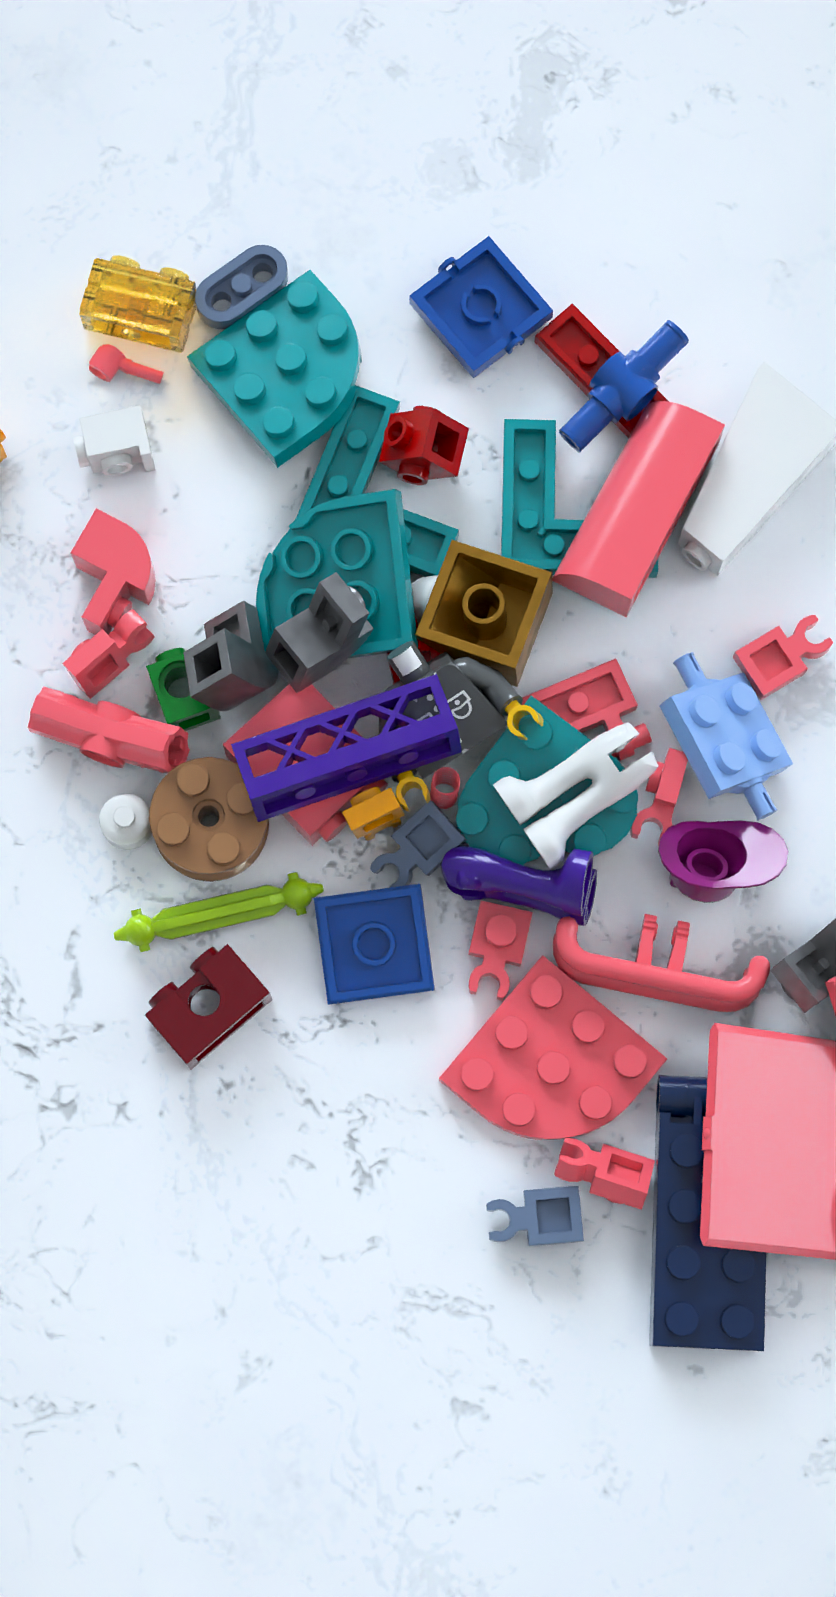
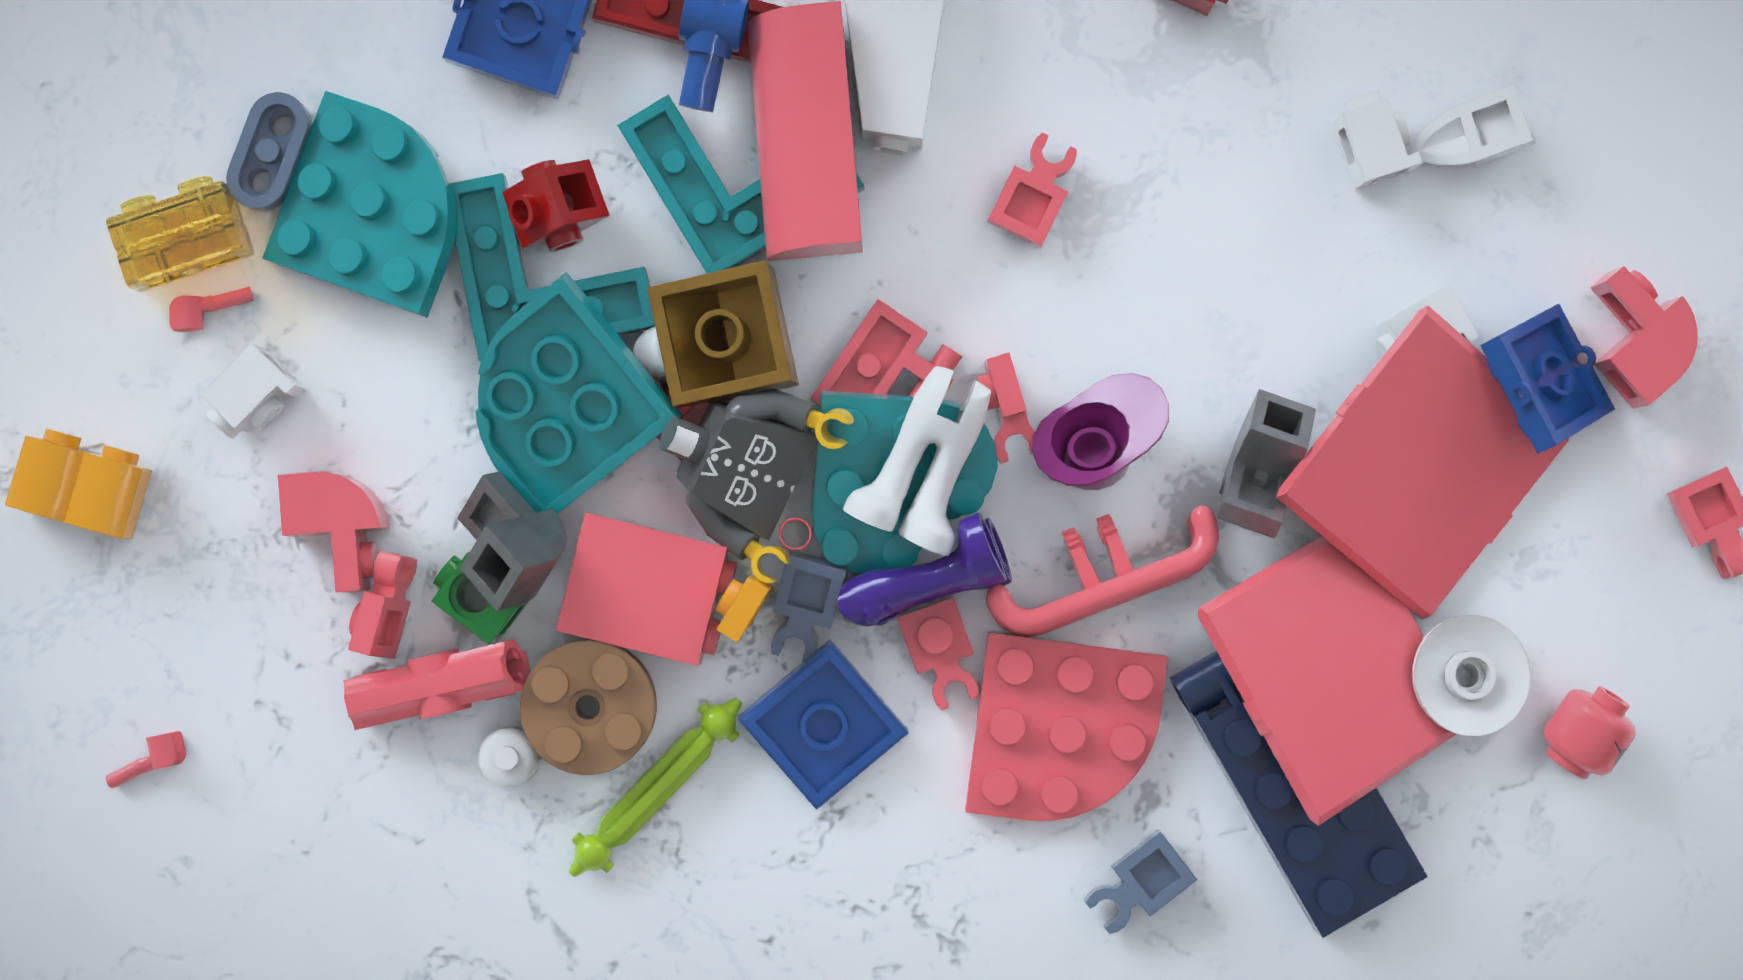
camera: 30 degrees left, 10 degrees up
(195, 1035) = (708, 922): dark red brick -> none
(320, 636) = (581, 468): flat silver brick -> none
(353, 765) = (696, 580): dark purple fence -> none
(612, 1172) = (1185, 796): coral plate -> none
(726, 735) = (1031, 309): light blue plate -> none

